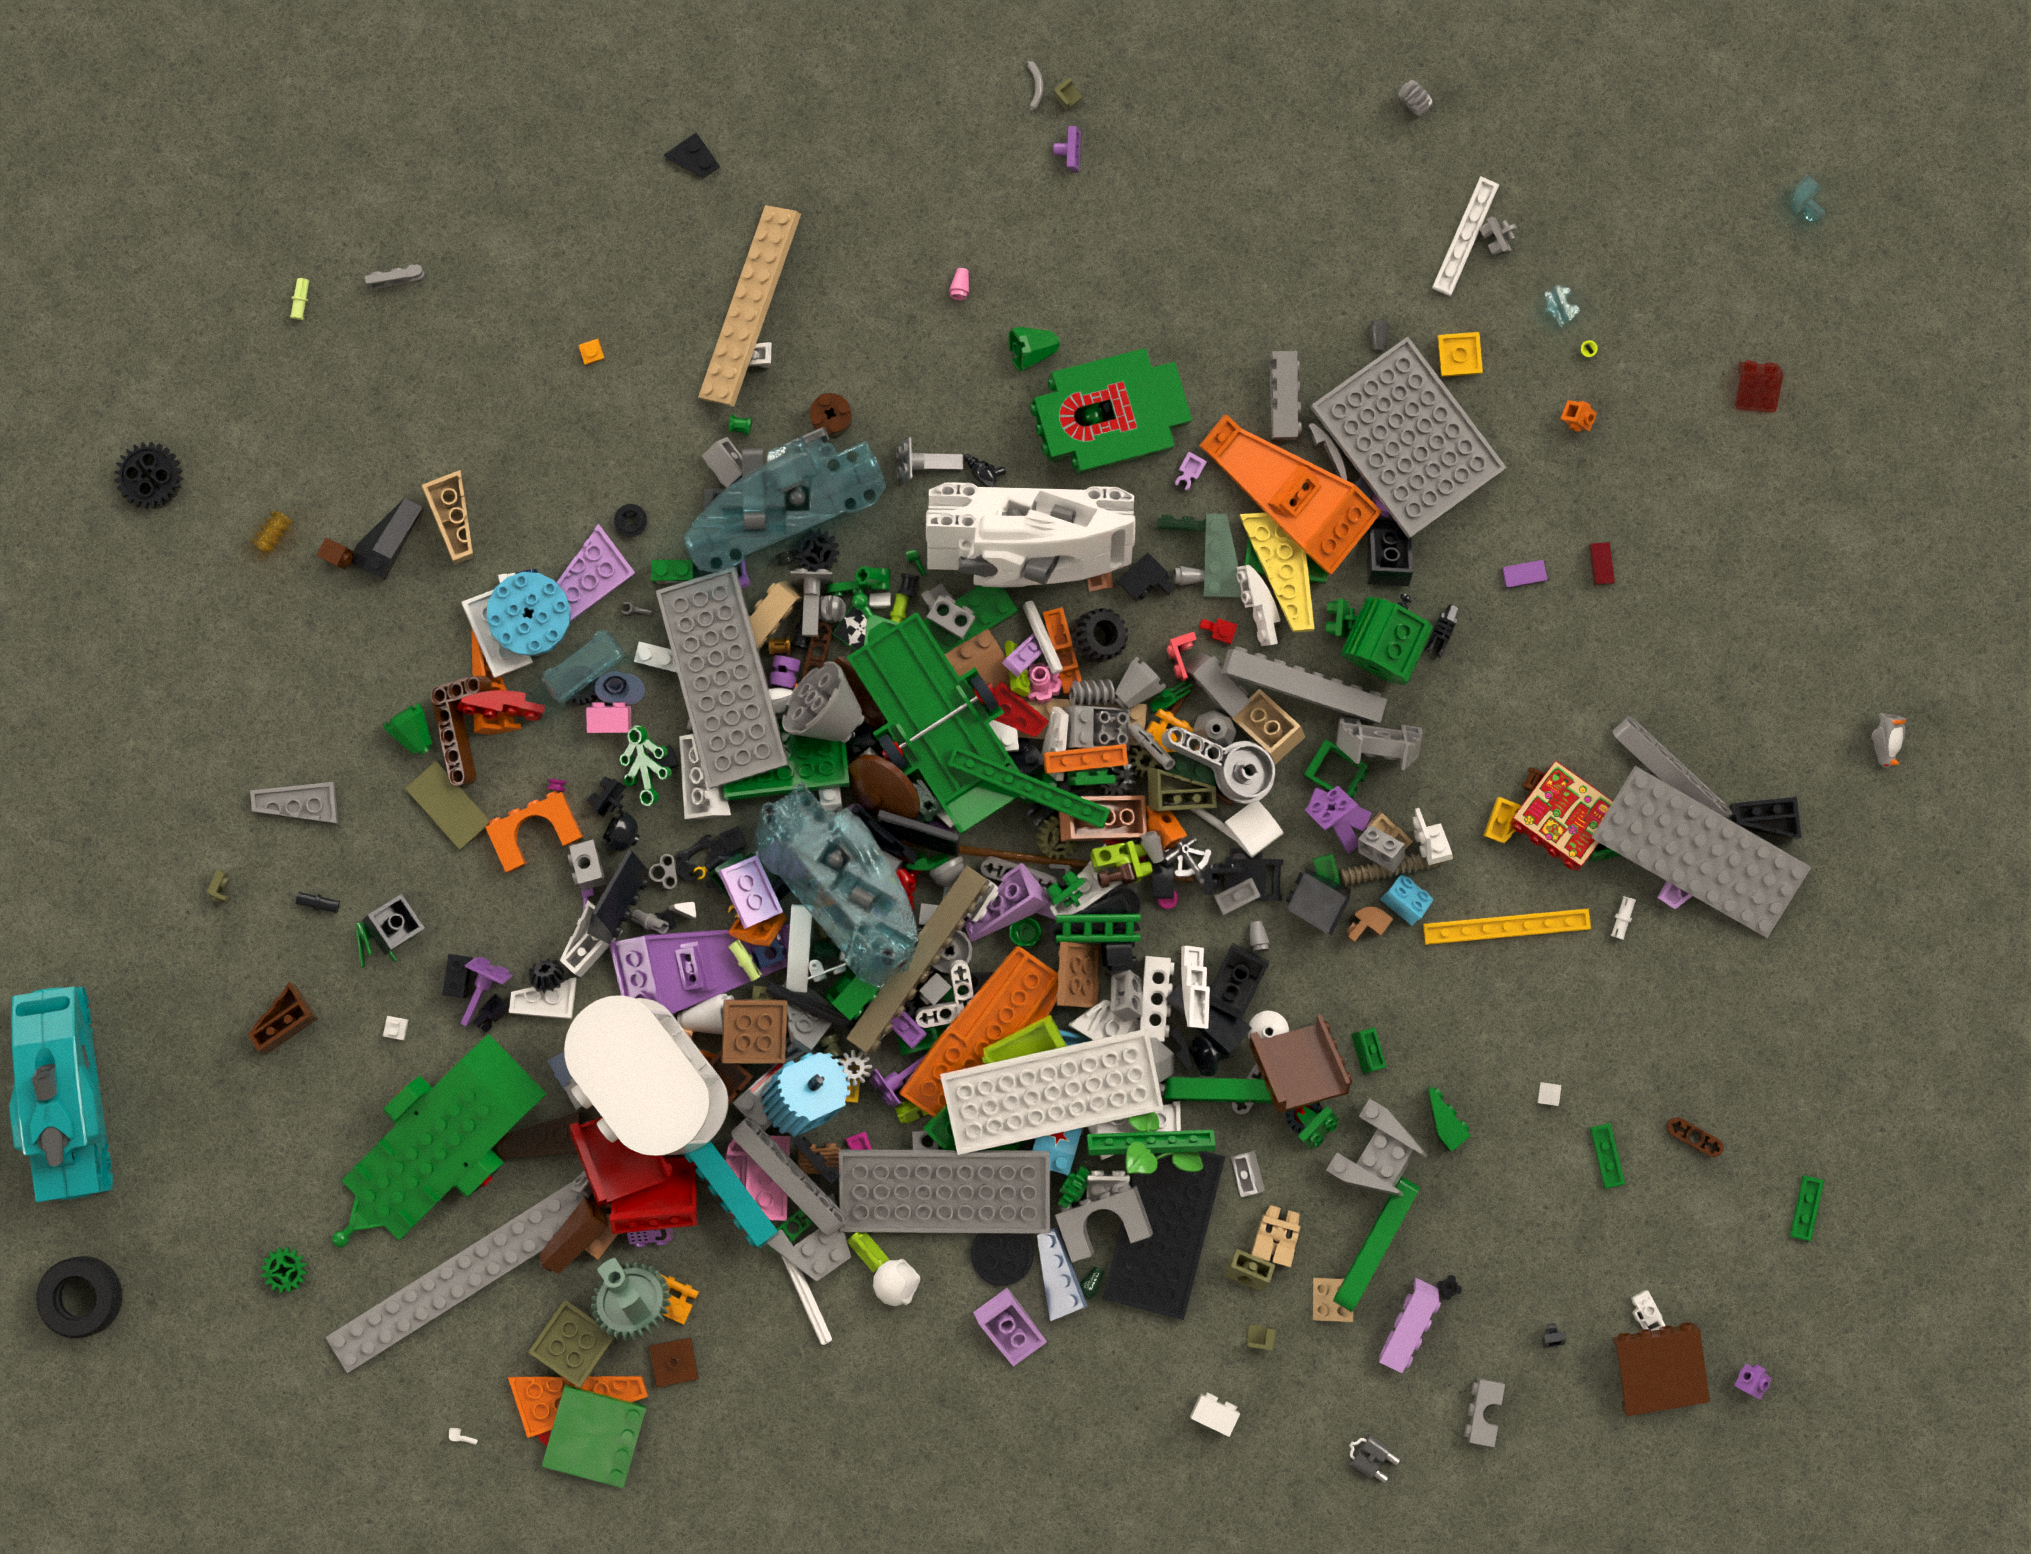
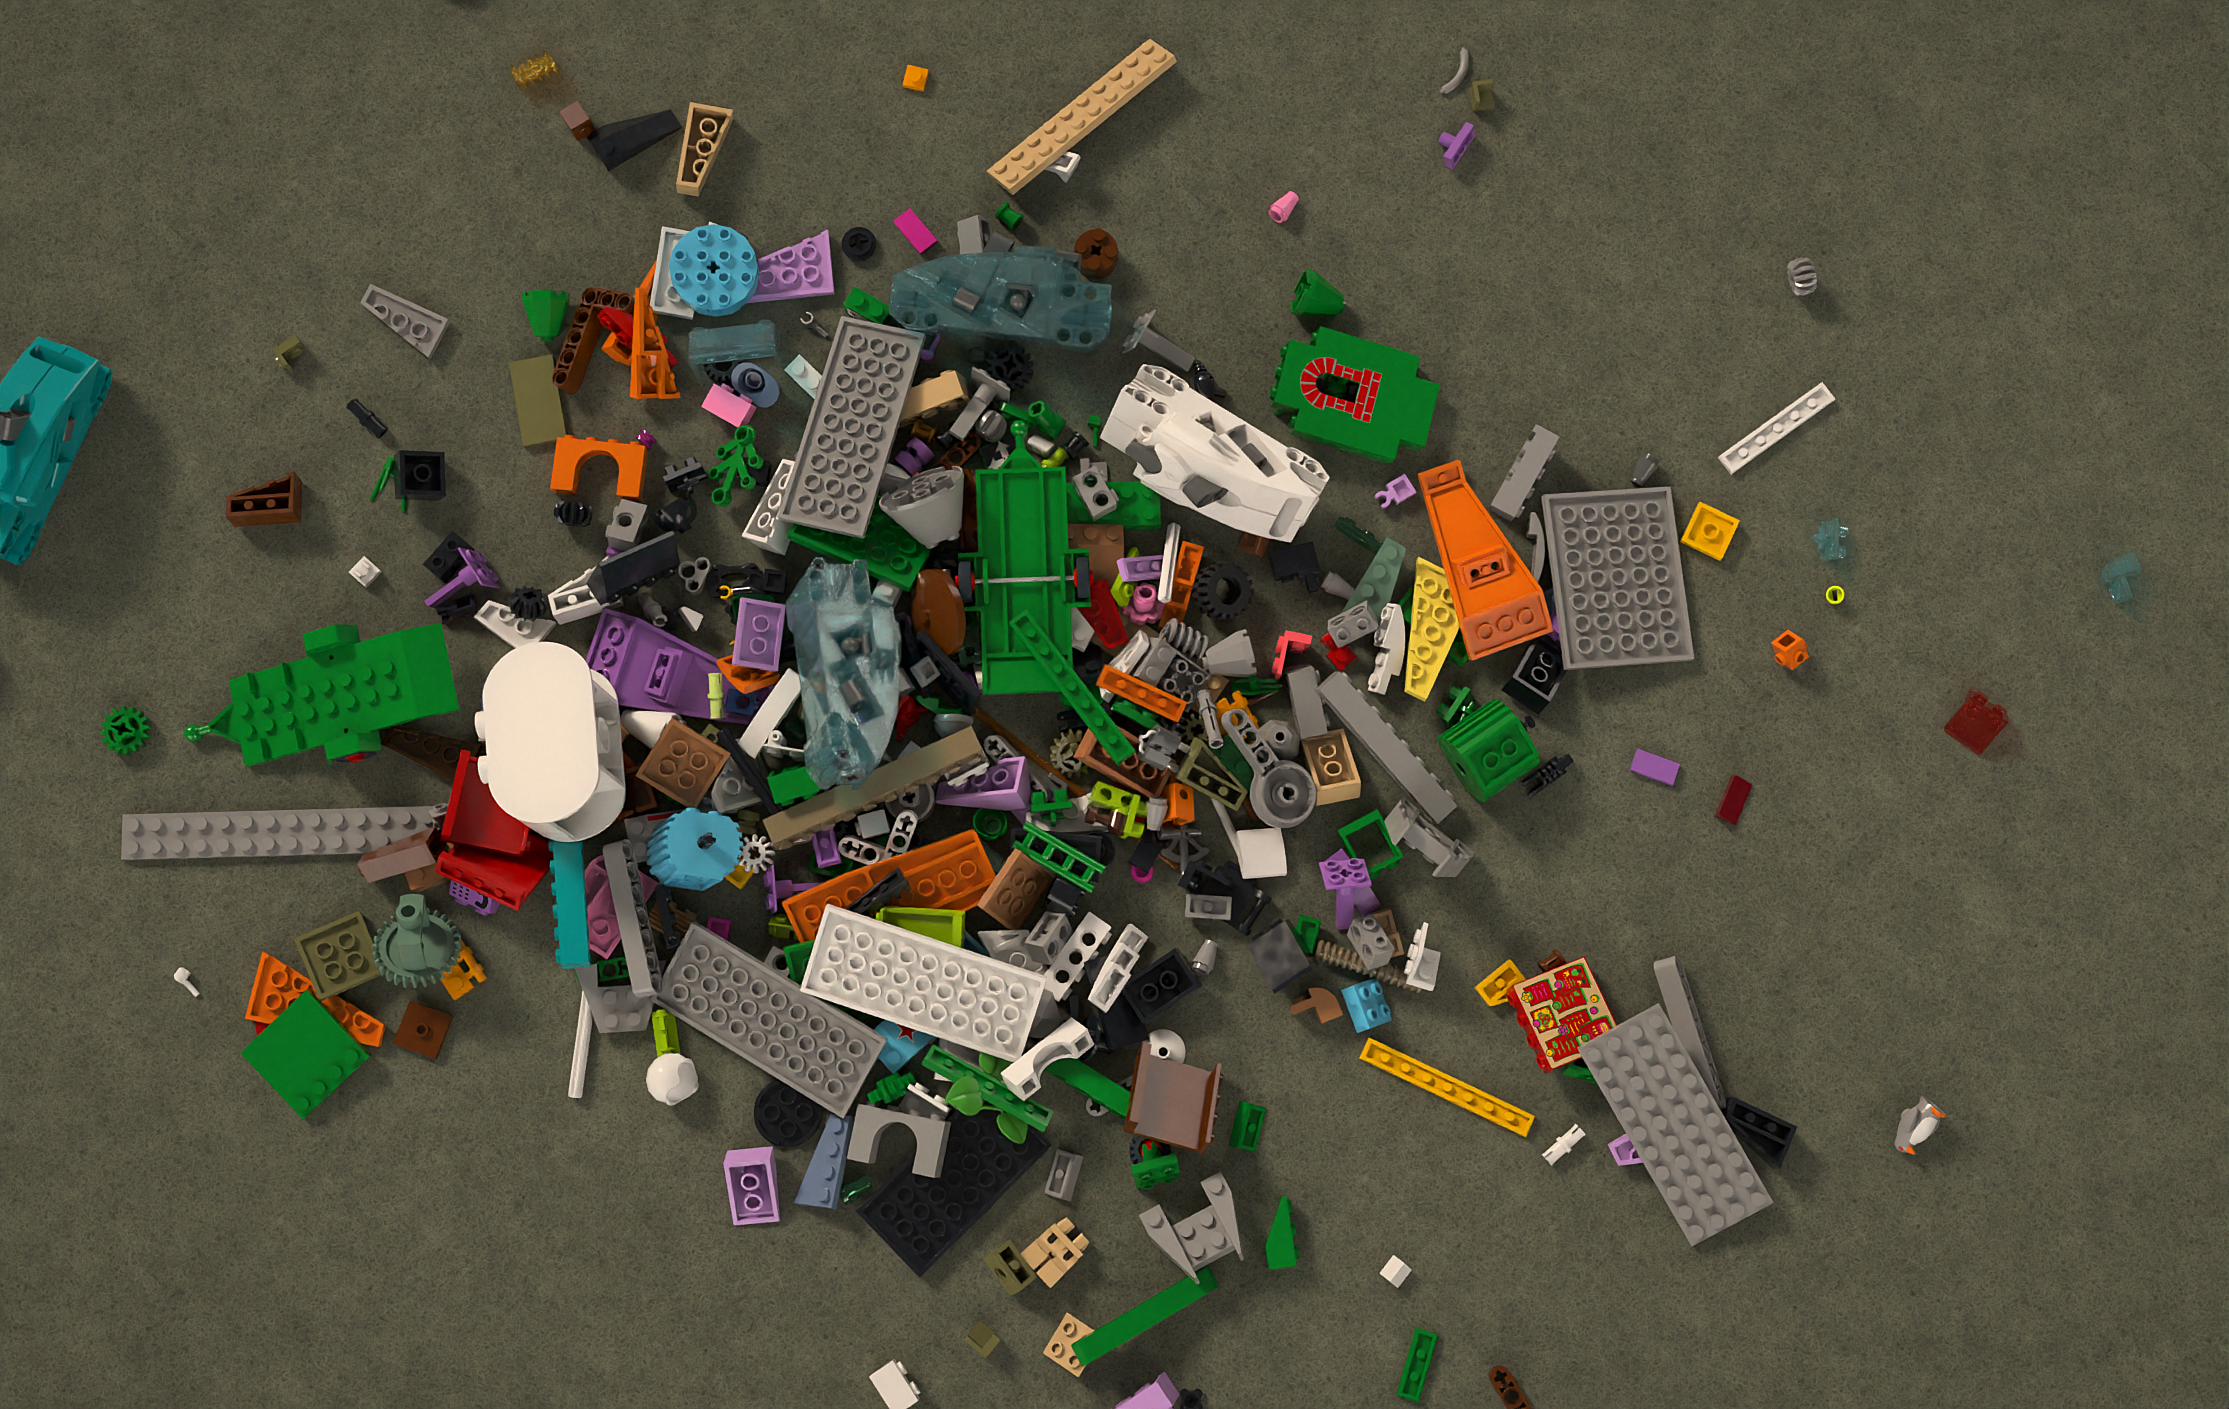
camera: 30 degrees right, 5 degrees down
(524, 723) = (649, 364): none -> orange wedge
(536, 881) = (572, 513): none -> black gear
(670, 482) = (915, 231): none -> dark pink tile
(901, 842) = (925, 671): none -> light grey tile
(974, 1042) = (880, 894): none -> black plate
(1126, 793) = (1159, 748): none -> dark grey piece
(1190, 1069) = (1066, 1041): none -> white arch
(1219, 601) = (1352, 624): none -> light grey brick
(1493, 227) = (1807, 434): light grey hips -> none

